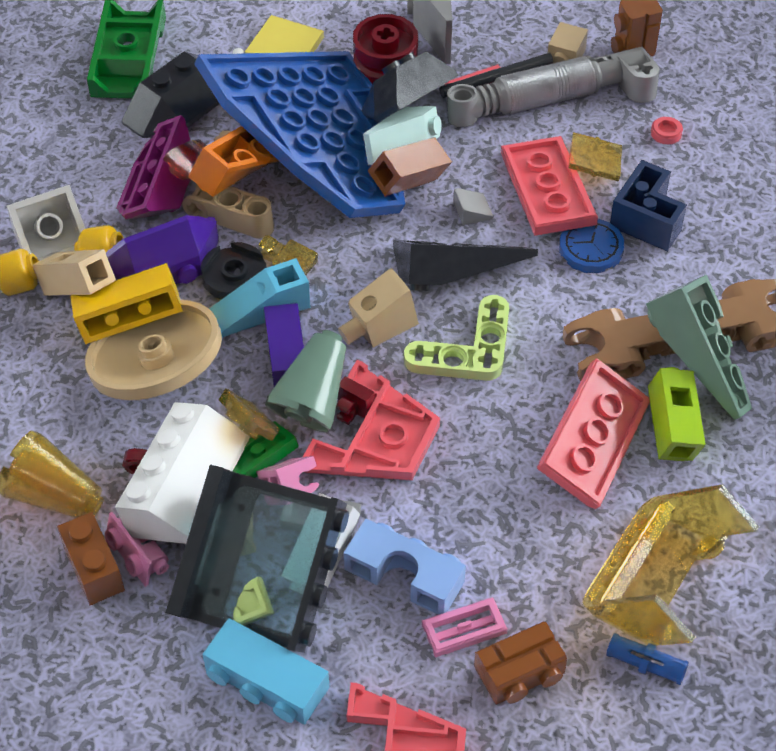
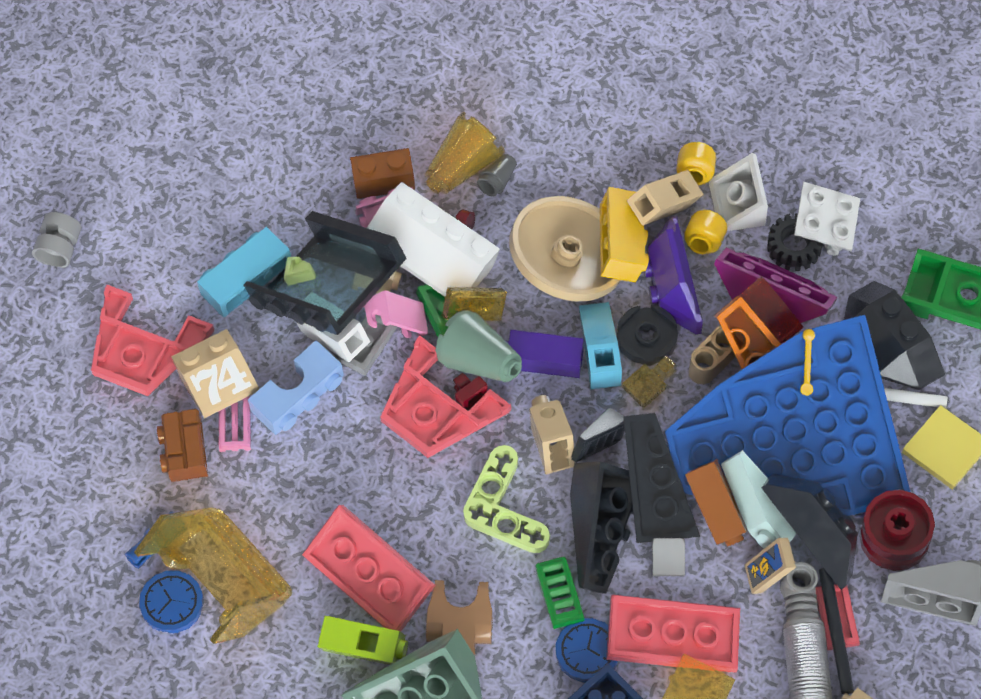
camera: 110 degrees right, 10 degrees up
(63, 151) = (827, 217): none -> white hinge
(74, 446) = (496, 176): none -> dark grey cone
(93, 166) = (786, 256): none -> black tyre
(280, 101) = (808, 336): none -> yellow hinge
(361, 270) = (601, 434): none -> black slope
(413, 216) = (656, 490): none -> black wing
(420, 651) = (215, 373): none -> tan slope
(458, 119) = (770, 565): none -> tile
(536, 292) = (555, 573): none -> green slope
(714, 617) = (171, 601): none -> blue tile

